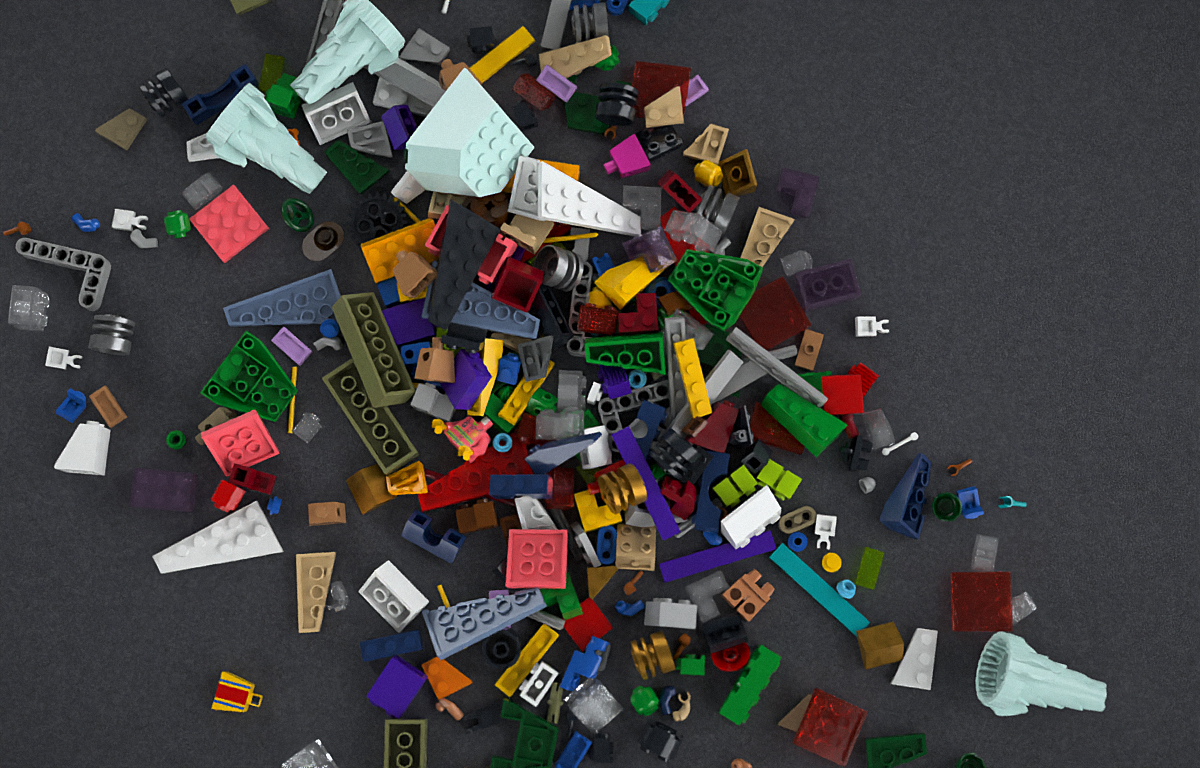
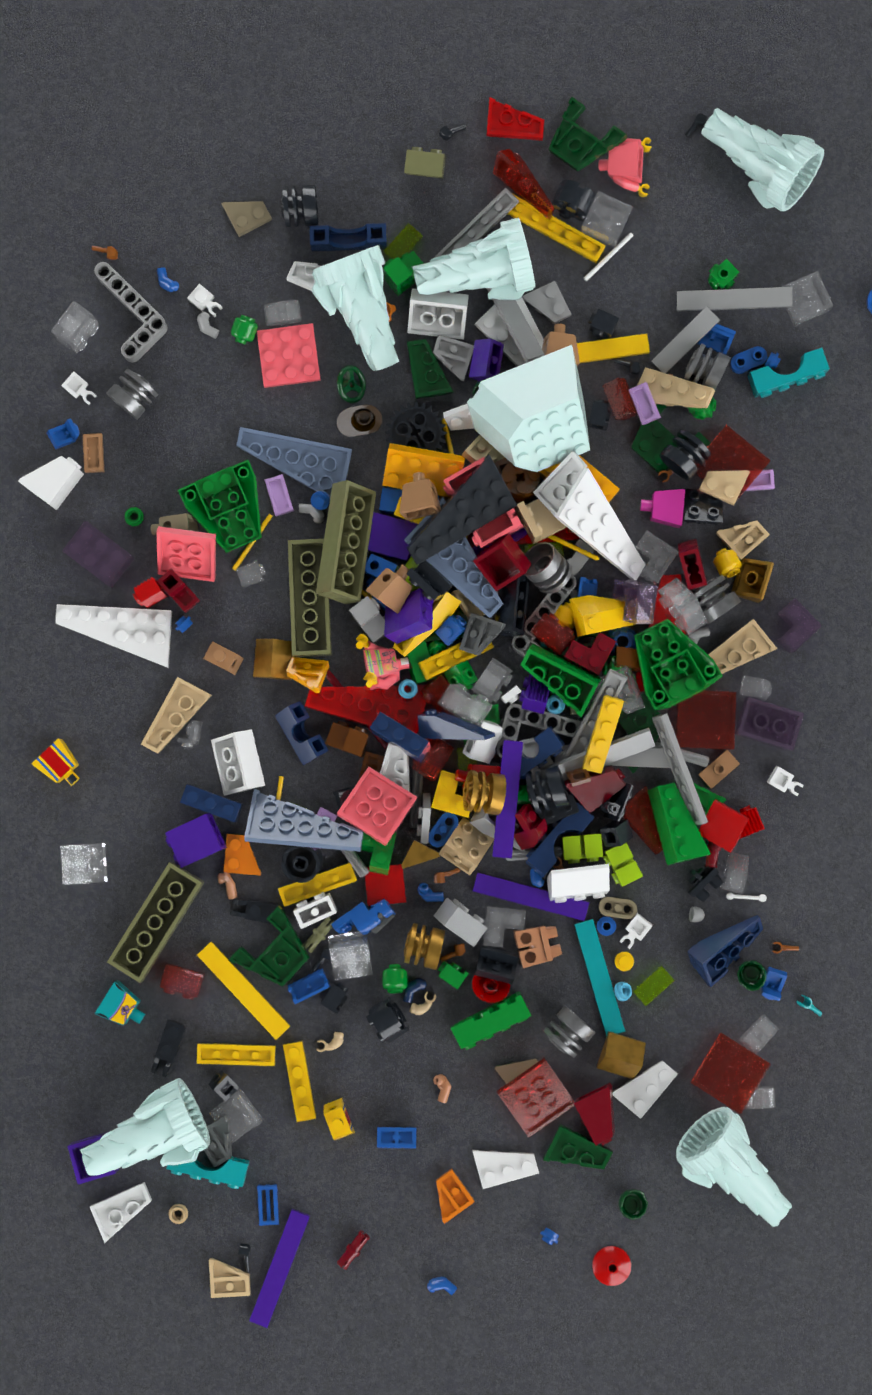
camera: 30 degrees right, 5 degrees up
(822, 652) = (569, 1032): none -> flat silver wheel
(891, 708) = (598, 1113): none -> dark red slope

